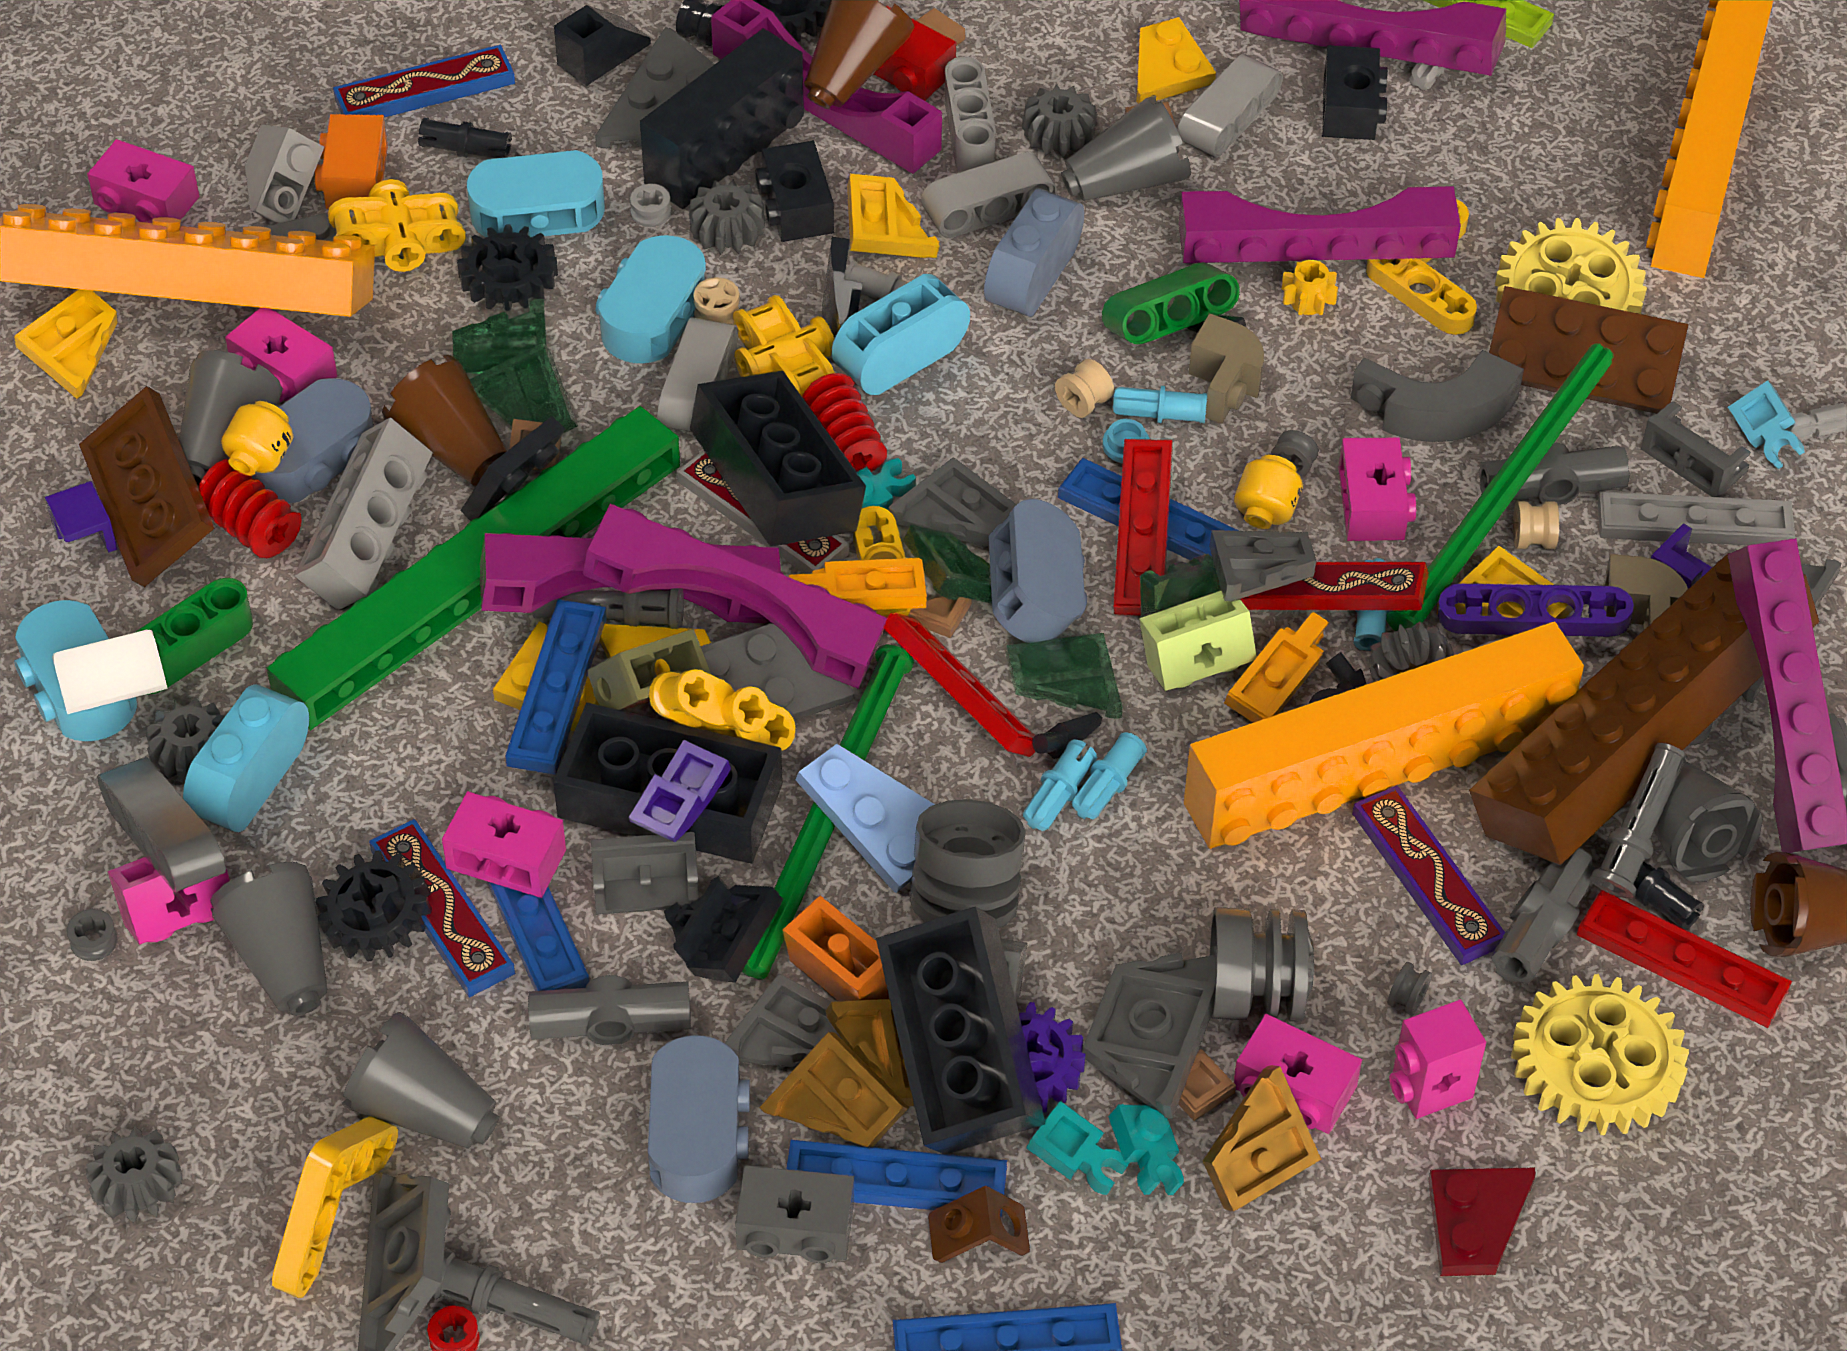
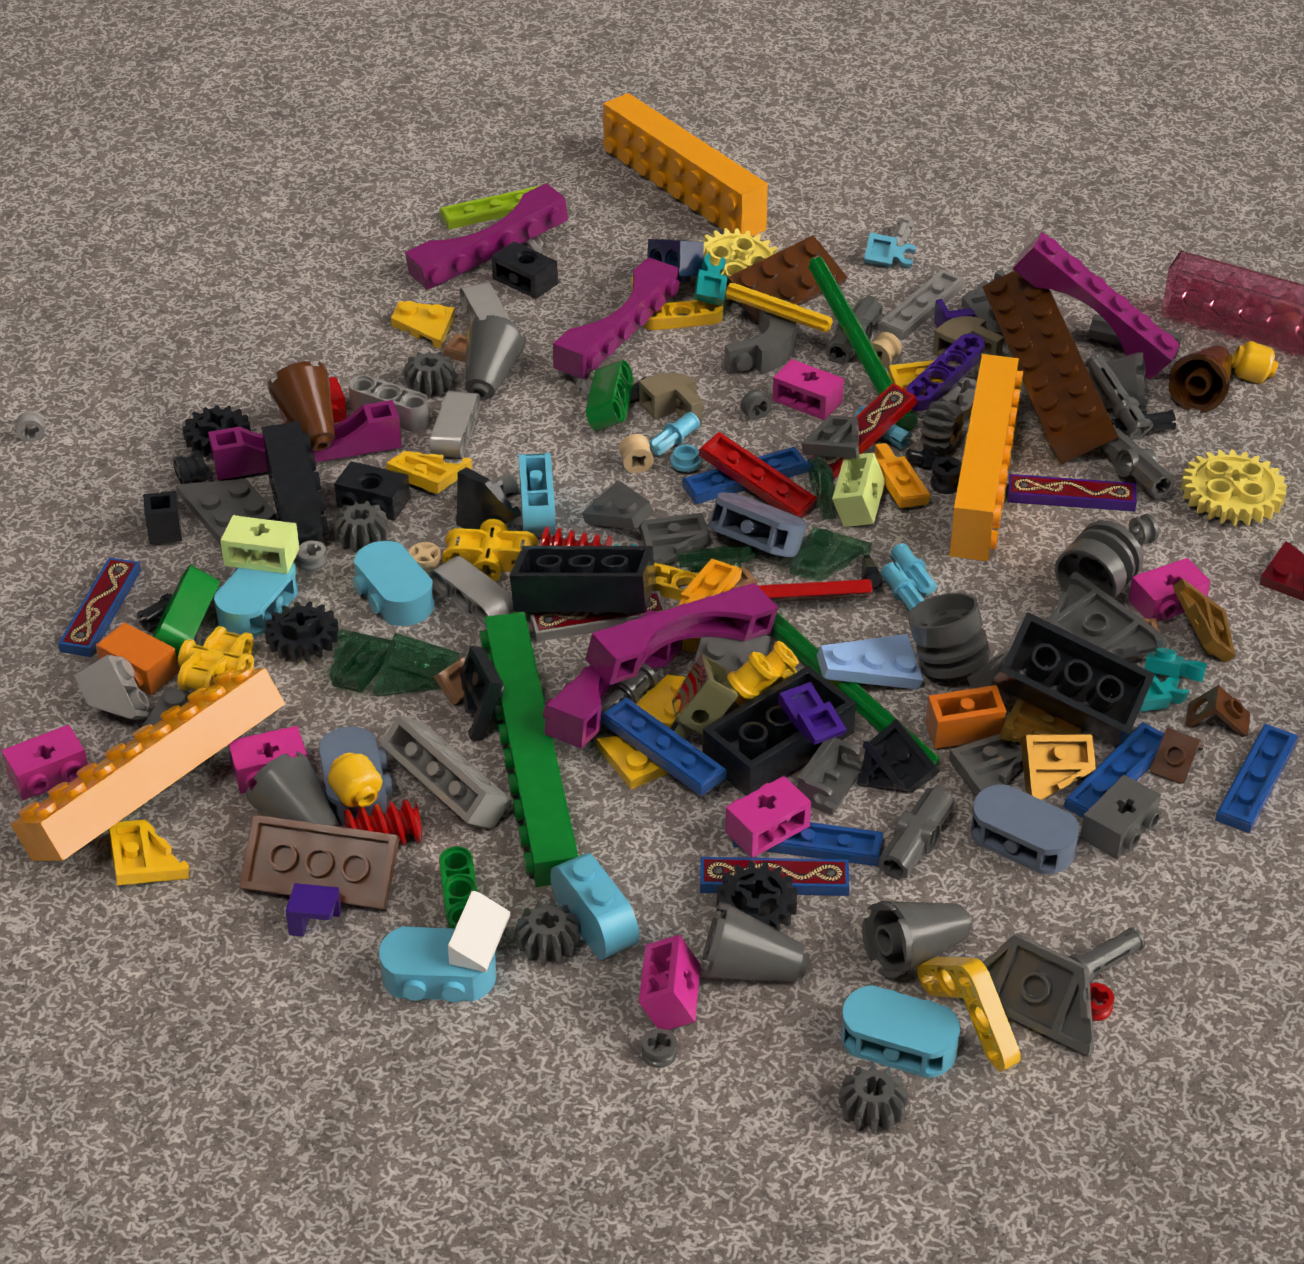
camera: 55 degrees left, 10 degrees down
(161, 824) = (628, 955): dark grey beam -> none
(255, 1147) = (900, 1031): none -> medium azure brick
(447, 417) = (413, 699): reddish brown cone -> none
(449, 151) = (186, 607): none -> green beam
(581, 145) = (260, 544): none -> yellowish green brick
(968, 426) = (618, 508): none -> dark grey wing
(1034, 252) = (524, 420): sand blue brick -> none
(1099, 1246) = (1222, 705): none -> reddish brown bracket
(1268, 491) = (775, 424): yellow head -> none
(1309, 287) = (647, 346): yellow gear -> none
(1437, 1059) = (1208, 531): dark pink brick -> none
(1479, 279) = (710, 283): none -> teal plate
(1484, 369) = (779, 307): none -> yellow axle
(1498, 215) = (683, 254): none -> dark blue brick
(1684, 958) = (1196, 435): red tile -> none
(1692, 454) = (883, 283): dark grey hinge -> none

